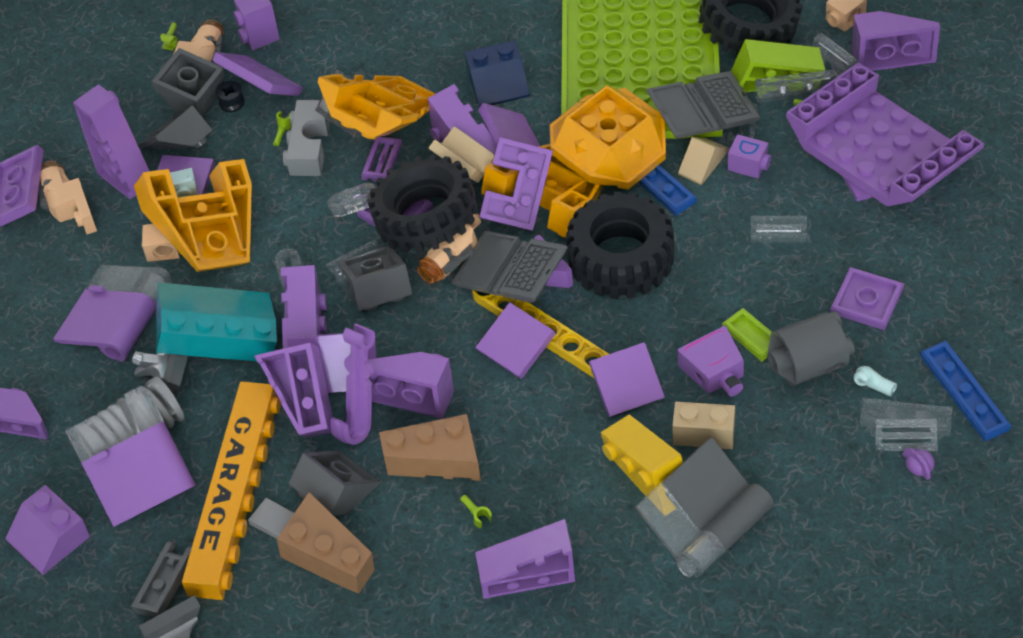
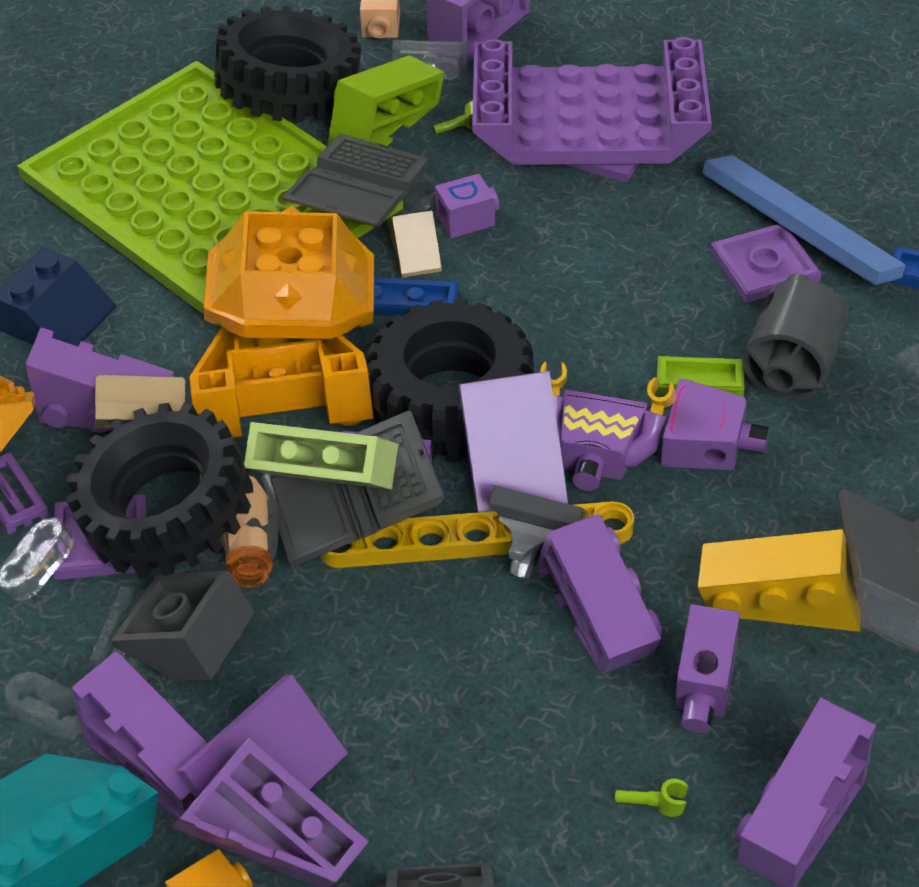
camera: 50 degrees left, 5 degrees down
(357, 388) = (357, 752): medium lavender piece -> none
(413, 382) = (400, 708): medium lavender slope -> none
(431, 449) = (521, 765): medium nougat wedge -> none
(499, 238) = (321, 455): none -> yellowish green brick
(507, 125) = (149, 347): medium lavender tile -> none
(515, 340) = (455, 569): medium lavender tile -> none
(523, 206) = (252, 358): medium lavender plate -> none
(555, 400) = (600, 593): none -> medium lavender wedge
(558, 471) = (706, 666): none -> medium lavender torso
(569, 344) = (529, 522): none -> dark grey piece
(601, 298) = (513, 437): none -> tile
(626, 379) = (645, 513): medium lavender tile -> none
(660, 322) = (606, 433): none -> medium lavender torso
(699, 421) = (788, 496): tan brick -> none
(778, 226) = (581, 253): clear tile -> none
(791, 86) = (425, 109): clear tile -> none
(868, 377) = (880, 332): light aqua arm -> none
(912, 288) = (804, 220): none -> medium blue tile

